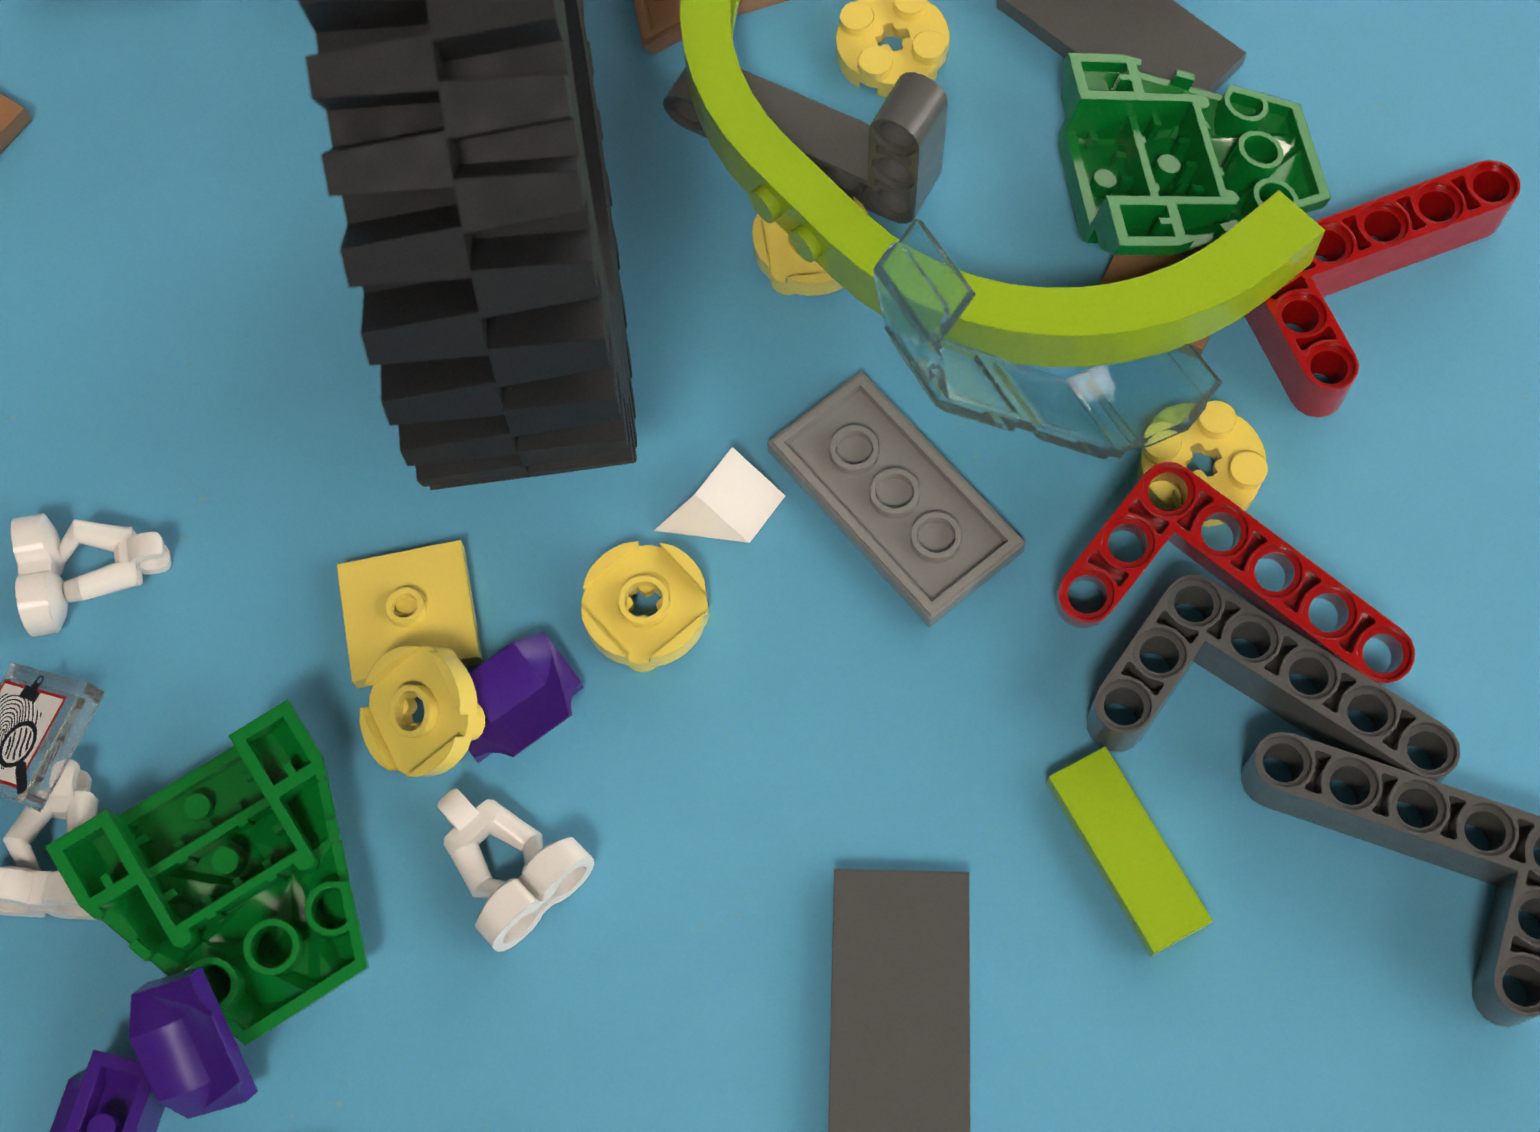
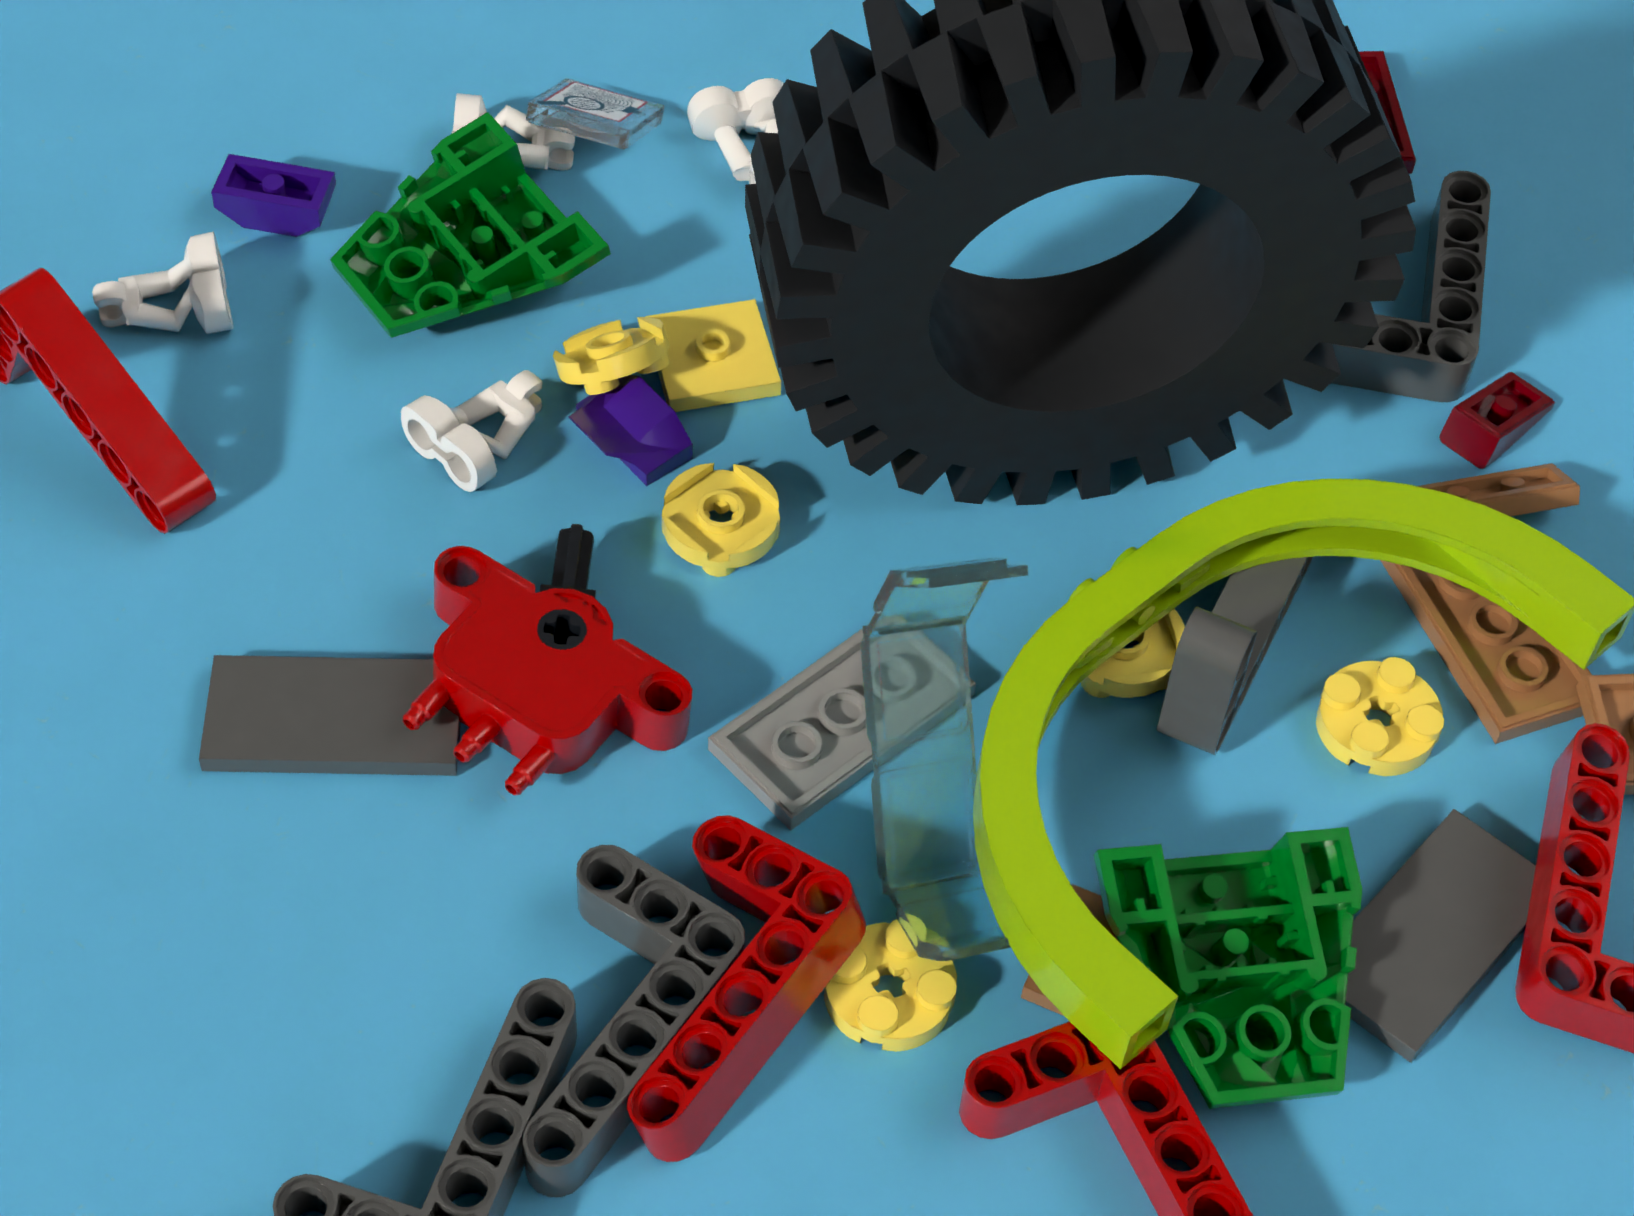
camera: 80 degrees right, 15 degrees down
(187, 1046) = (330, 221): dark purple slope -> none
(728, 504) = (830, 582): white sticker -> none
(882, 803) = (542, 666): none -> red piece
(1128, 851) = (472, 899): lime tile -> none

